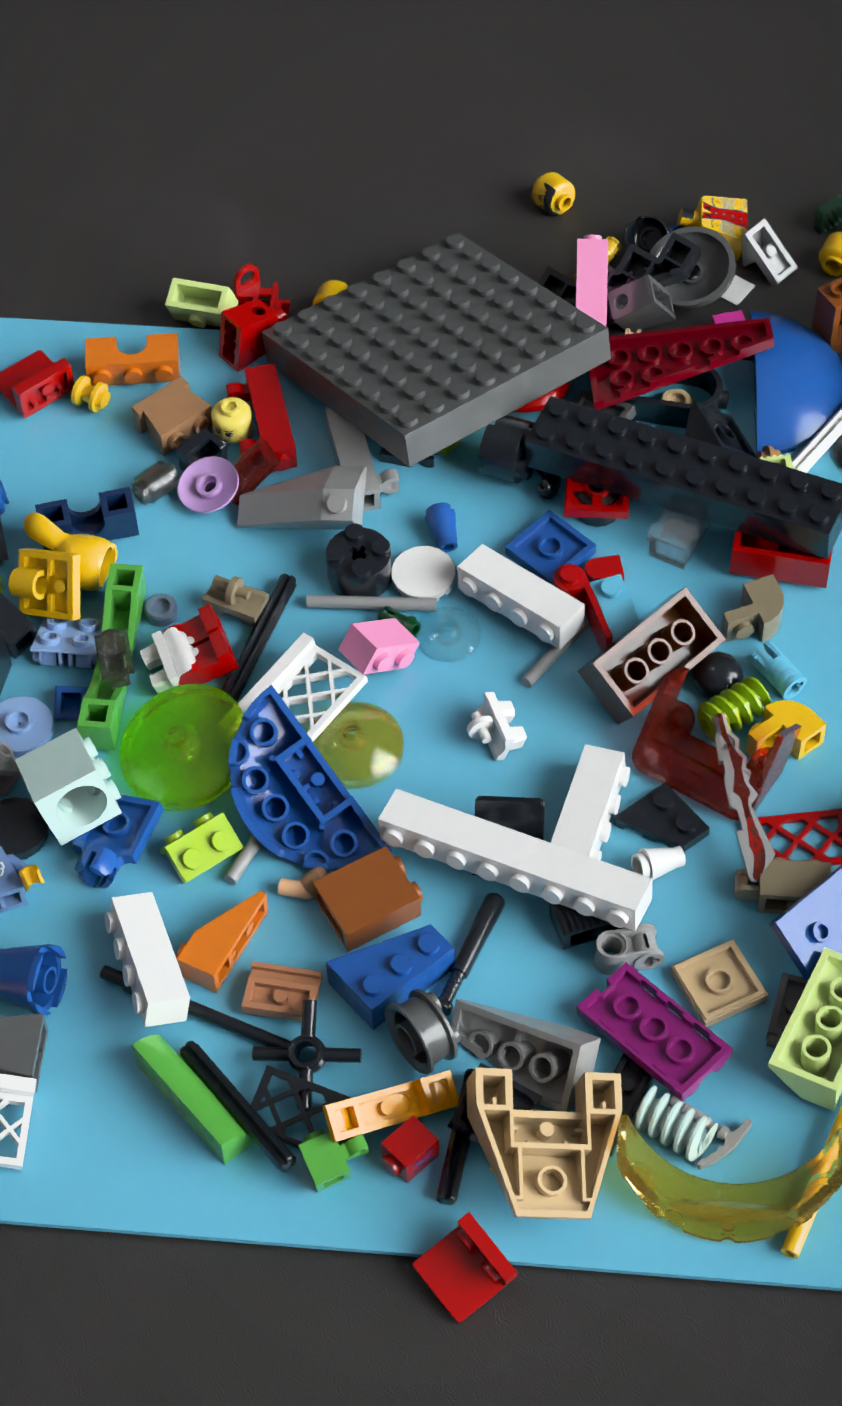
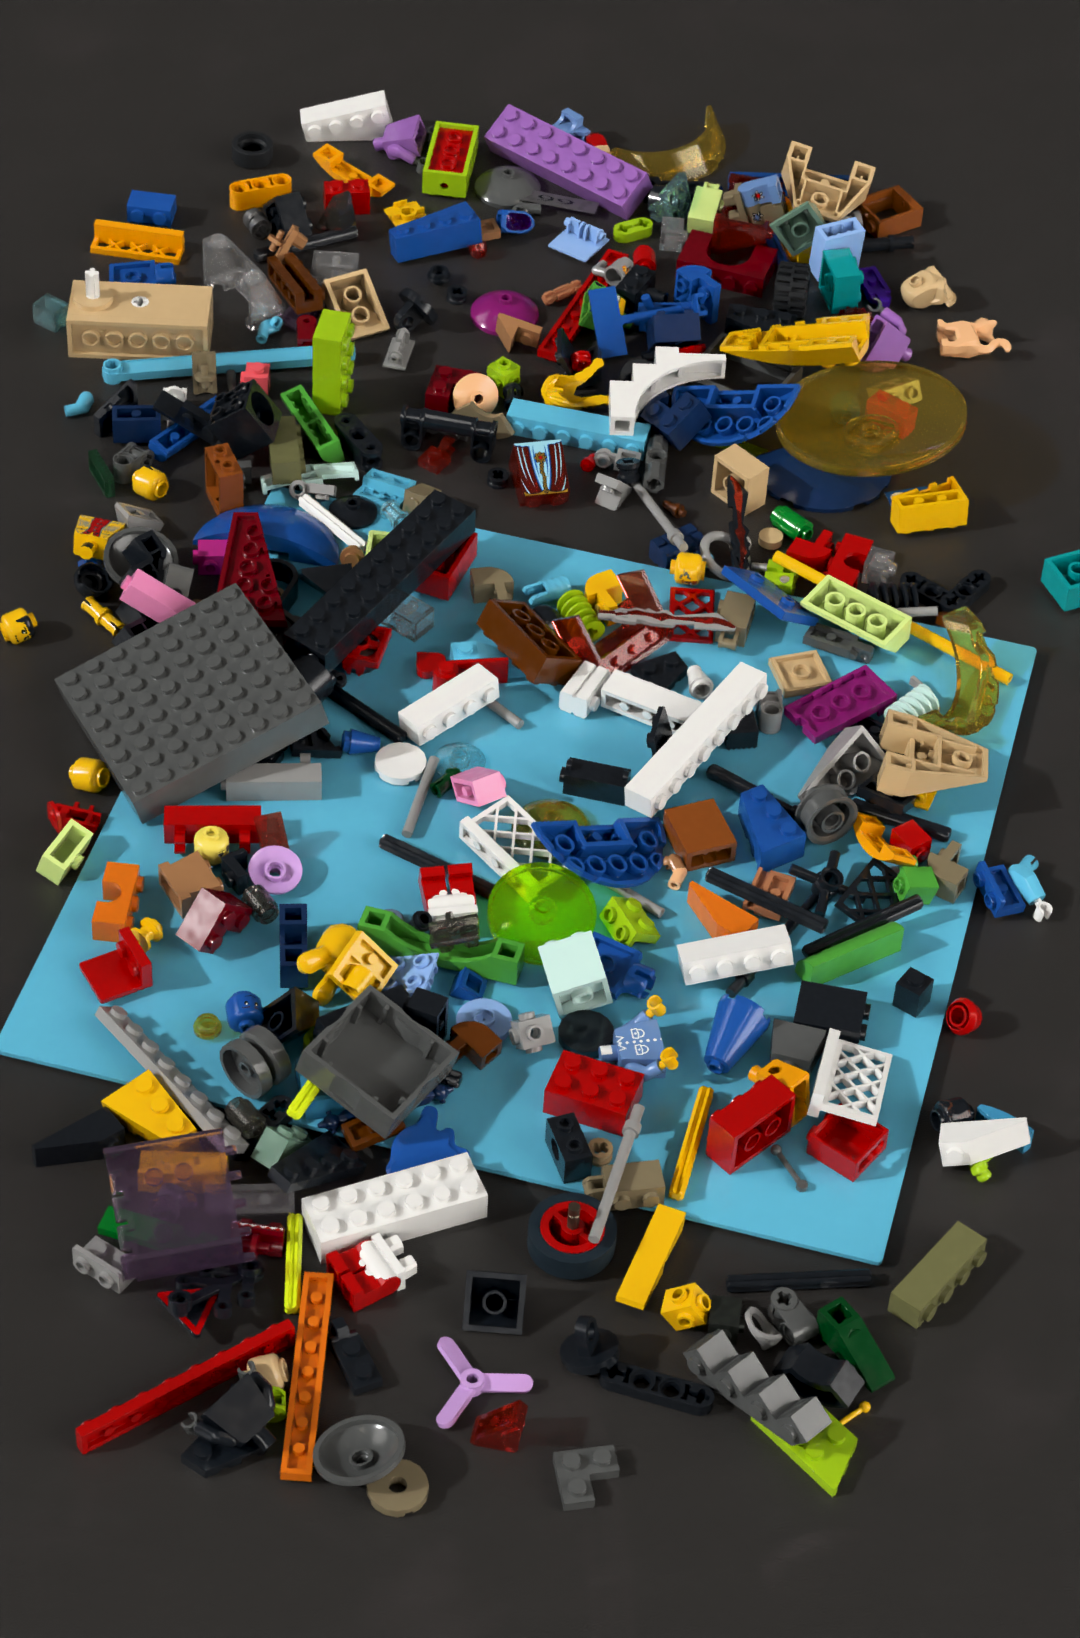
camera: 85 degrees left, 10 degrees down
(75, 1085) = (833, 1008): none -> black brick
(113, 1253) = (963, 1016): none -> red cone
(116, 439) = (210, 918): none -> brick
(129, 1177) = (913, 992): none -> black brick
(137, 626) = (421, 920): none -> black pin
(235, 599) = (401, 868): dark tan hips -> none
(242, 330) = (116, 813): red torso -> none
(252, 984) = (766, 900): none -> black axle
(311, 501) = (322, 797): light grey wedge -> none
(356, 1273) = (998, 890): none -> blue bracket
(358, 562) = (386, 791): black brick -> none
(361, 1191) = (948, 873): none -> dark tan brick
(379, 1307) = (1030, 887): none -> medium azure arm
(437, 765) = (595, 781): none -> black brick
(439, 477) = (316, 744): none -> black wing
(465, 1269) = (998, 829): red bracket -> none
(492, 726) = (561, 742): white hips -> none
(504, 517) = (367, 715): none -> black axle
(548, 545) = (398, 686): blue plate -> none
(599, 730) = (583, 690): none -> white brick

